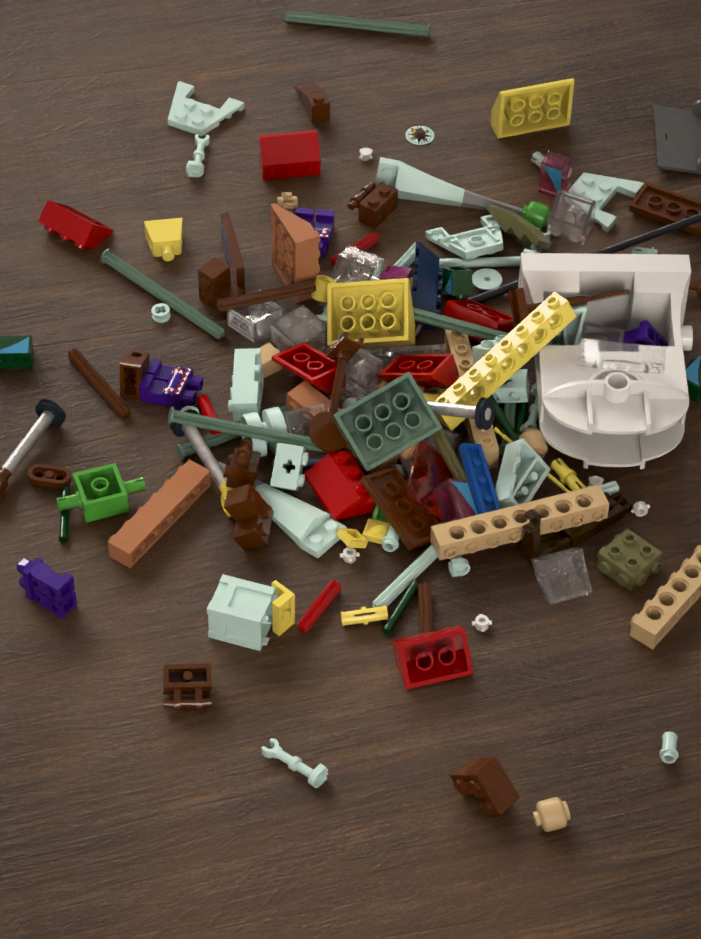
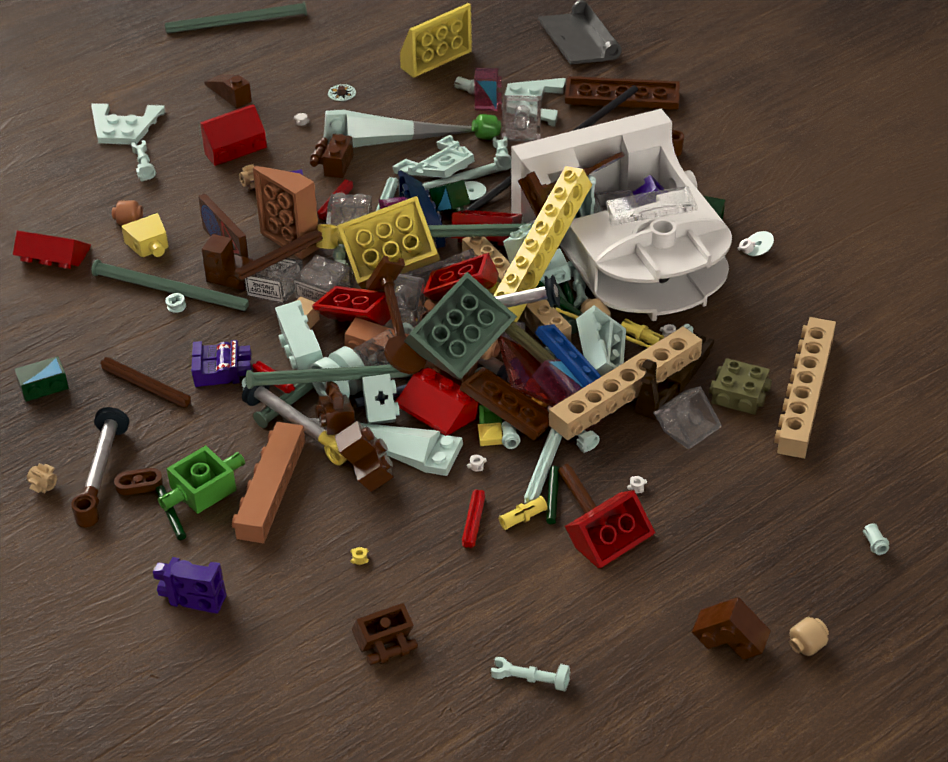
camera: 20 degrees left, 5 degrees down
(135, 366) = (179, 355): reddish brown torso -> none
(158, 207) = (127, 212): none -> nougat head
(202, 607) = (359, 556): none -> light yellow piece
(241, 612) = (406, 546): light aqua container -> none
(282, 609) = (442, 528): light yellow panel -> none
(352, 538) = (472, 446): light yellow tile -> none
(517, 225) = (474, 138): olive slope -> none
(640, 508) = (722, 340): white piece -> none

